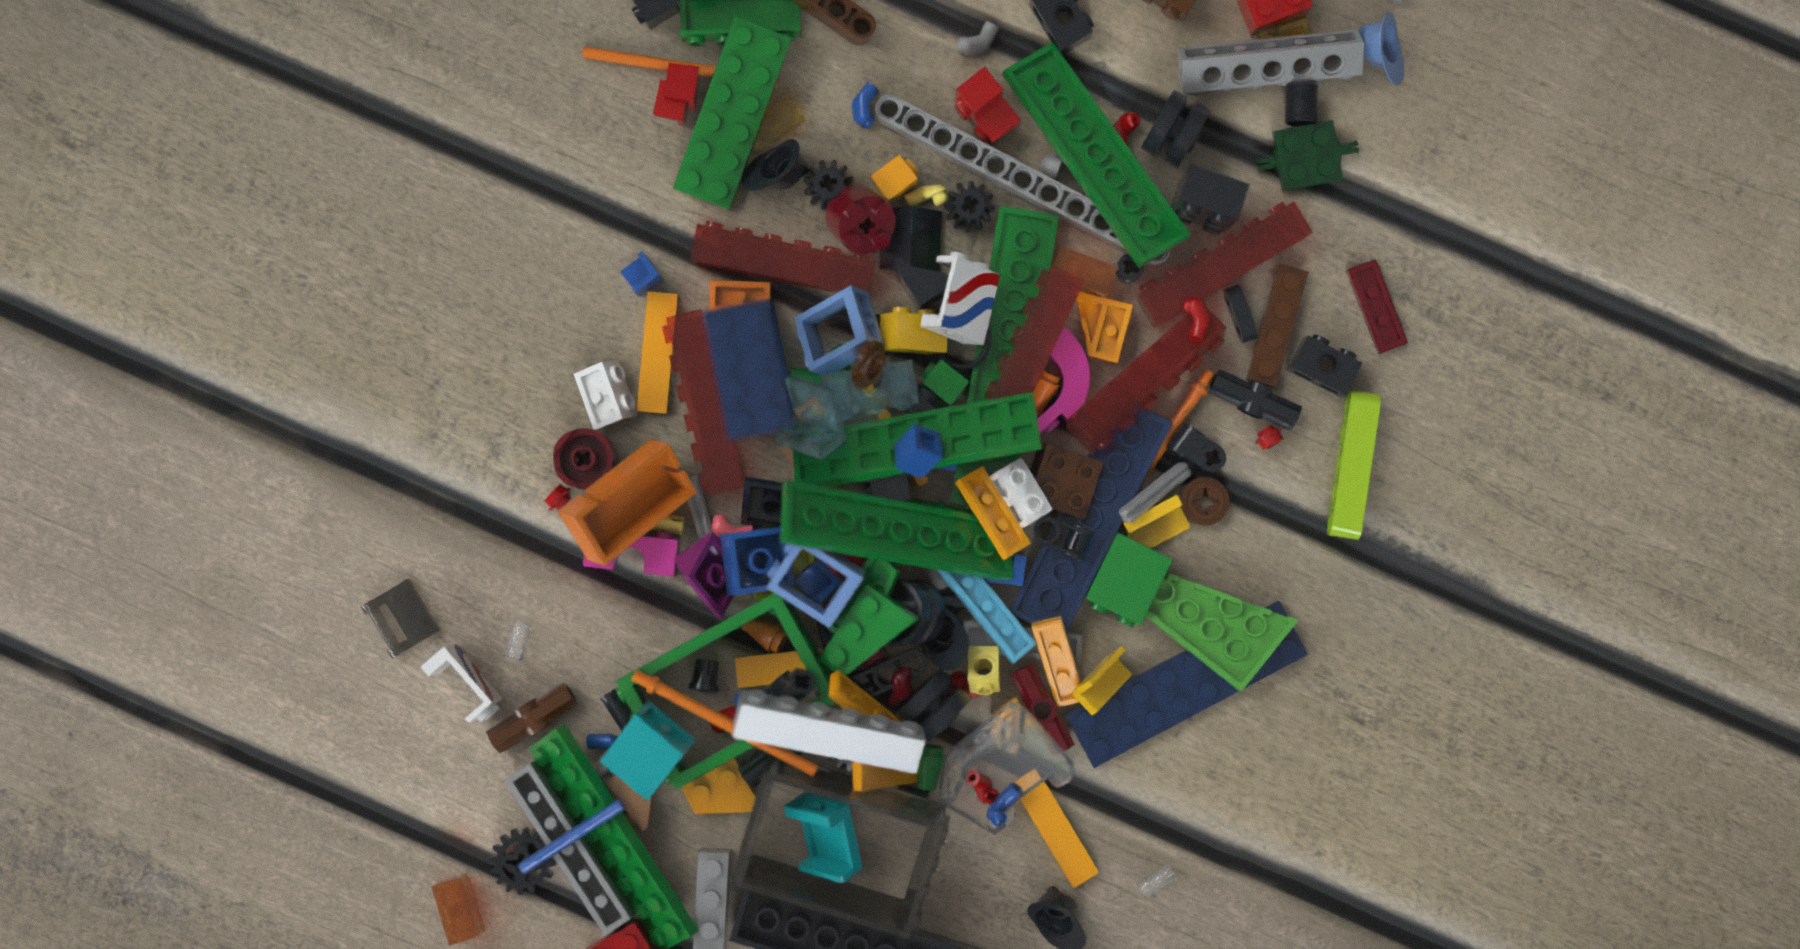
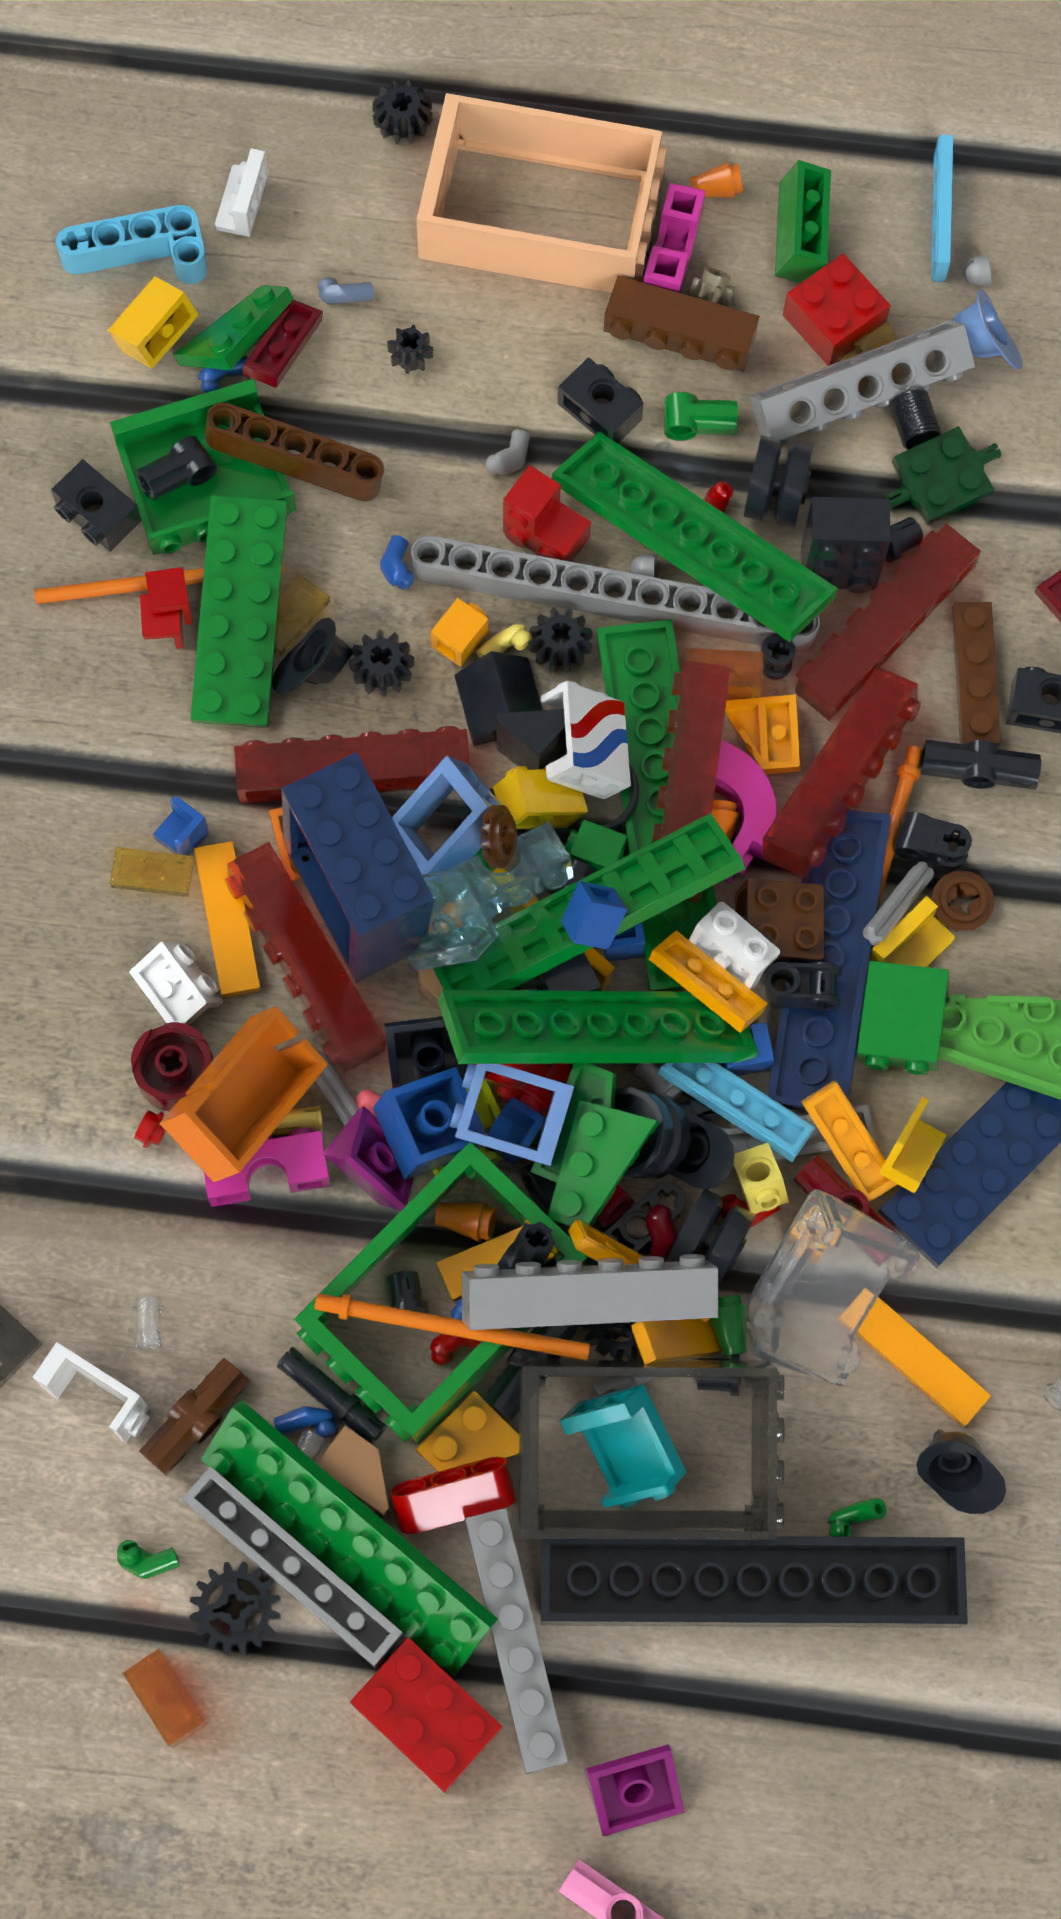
camera: 20 degrees left, 15 degrees down
(469, 809) = (144, 1564): none -> green arm
(571, 836) = (293, 1542): blue bar -> none
(611, 300) = (152, 872): none -> clear yellow plate
(647, 750) = (360, 1396): teal panel -> none
(696, 829) = (453, 1495): none -> red beam
(861, 220) = (434, 685): dark red brick -> none
(976, 925) = (856, 1513): none -> green arm
(982, 786) = (807, 1328): red arm -> none
(1002, 803) = (835, 1348): blue arm -> none
(1126, 50) = (688, 416): none -> green piece
(1201, 316) = (881, 675): red arm -> none
(1240, 313) = (927, 671): black beam -> none
(1257, 199) = (904, 537): none -> black bush
(1269, 437) = (1013, 804): red plate -> none

